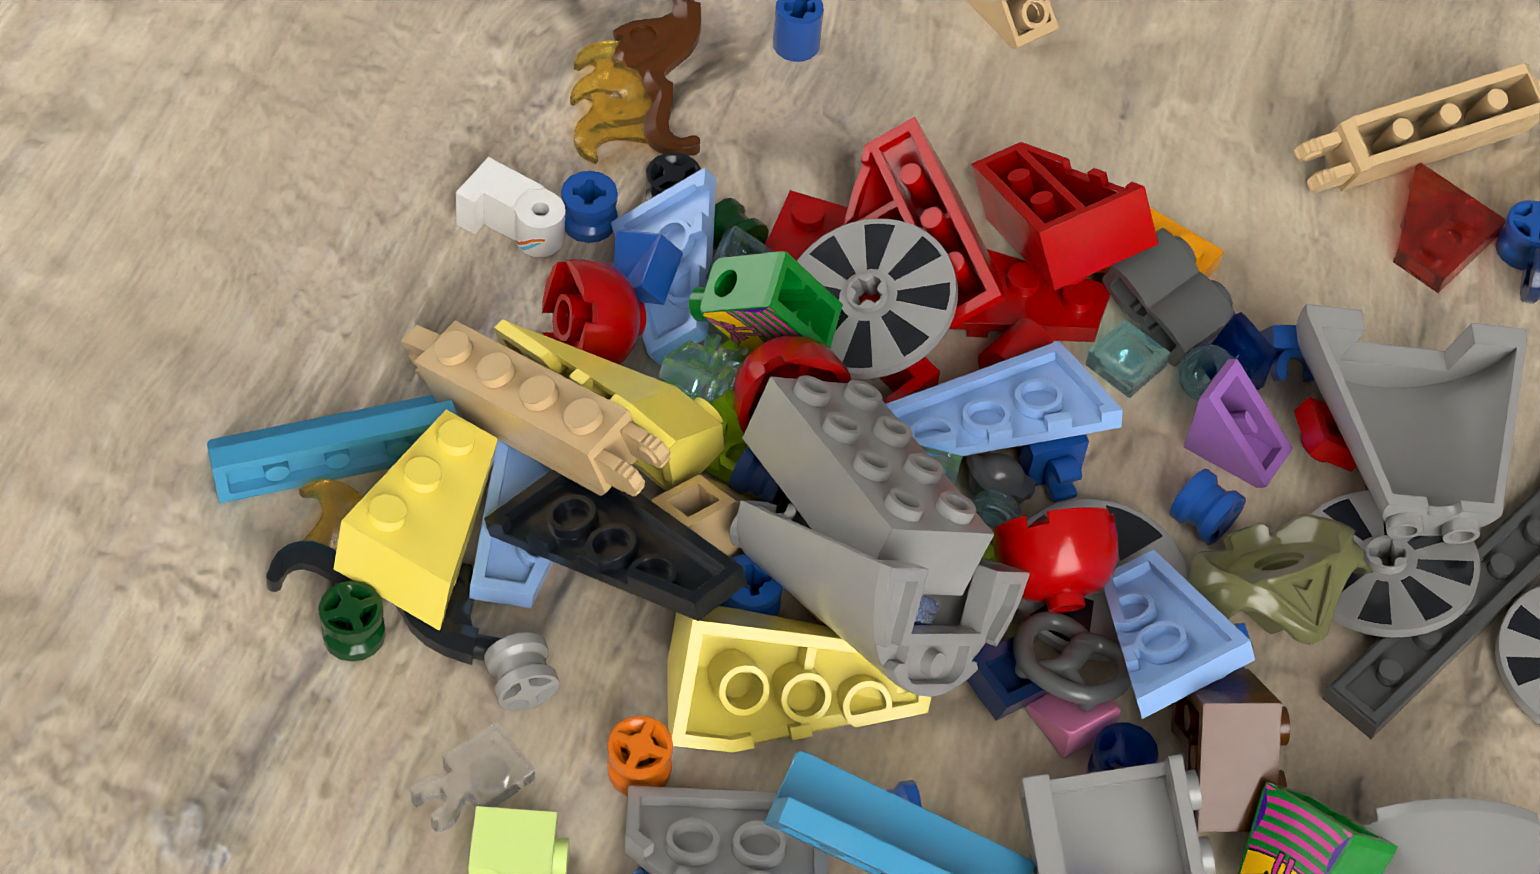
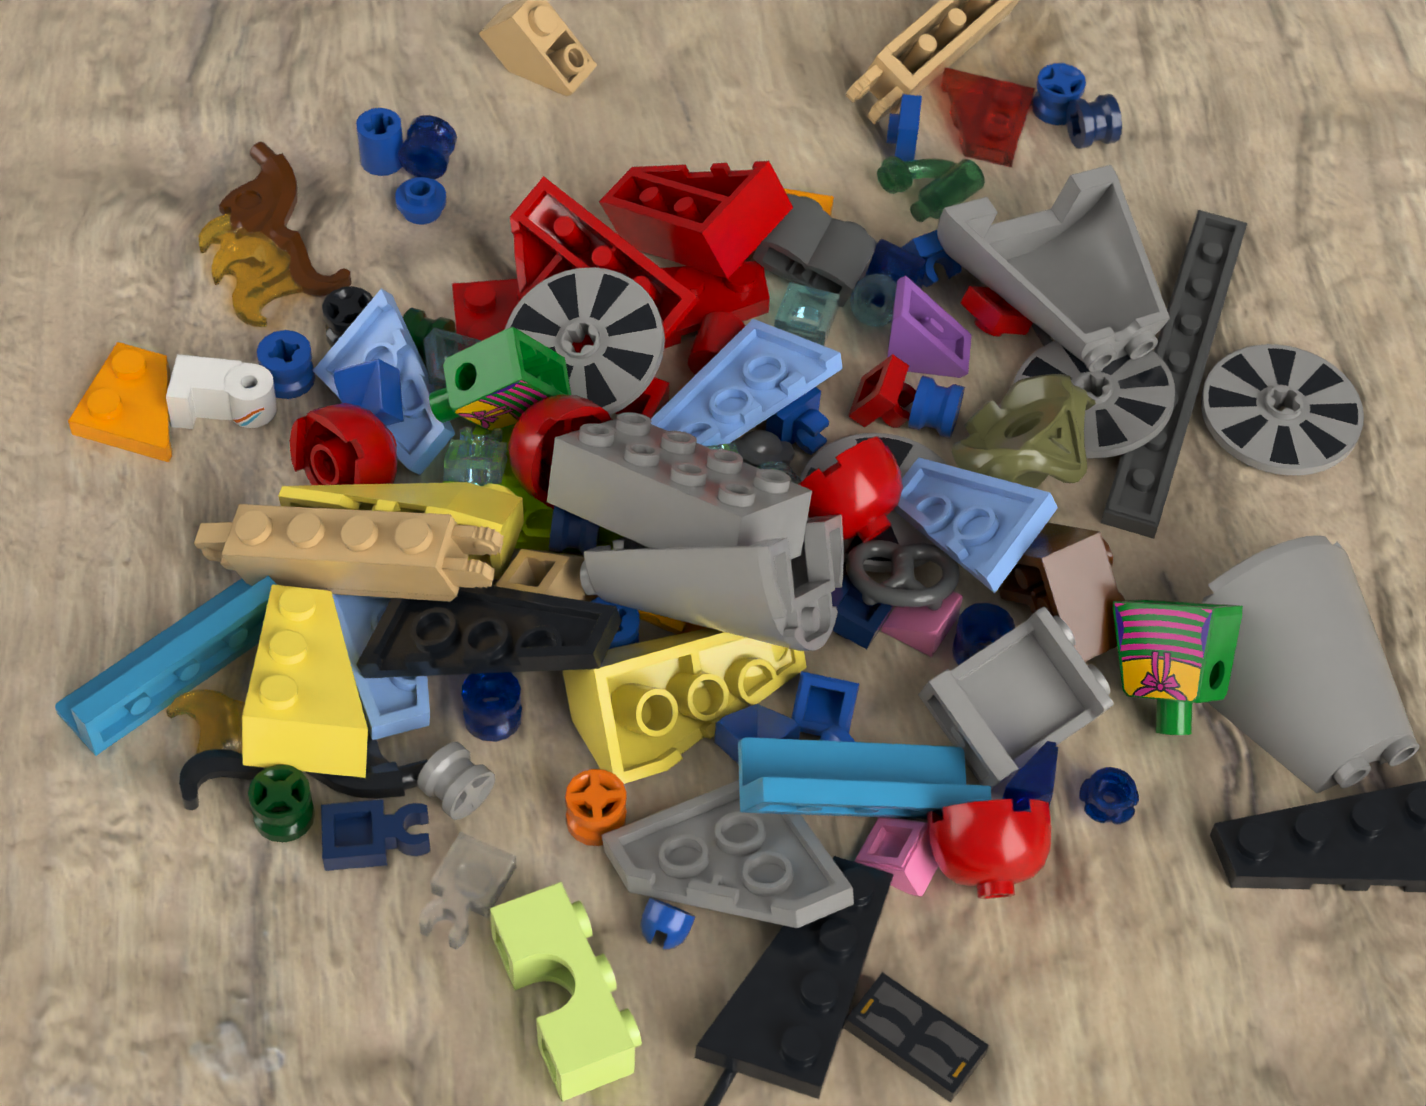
camera: 25 degrees left, 0 degrees up
(411, 680) = (361, 833): none -> dark blue plate
(422, 186) = (128, 403): none -> light orange wing
(591, 628) = (493, 719): none -> clear blue wheel
(807, 97) = (421, 200): none -> blue plate
(840, 48) = (428, 147): none -> clear blue wheel
(841, 747) = (753, 722): none -> blue slope
(924, 755) = (824, 702): none -> blue slope
(1156, 469) = (883, 394): none -> red tile
(1338, 210) = (904, 127): none -> blue plate
(1356, 288) = (951, 183): none -> clear green plant

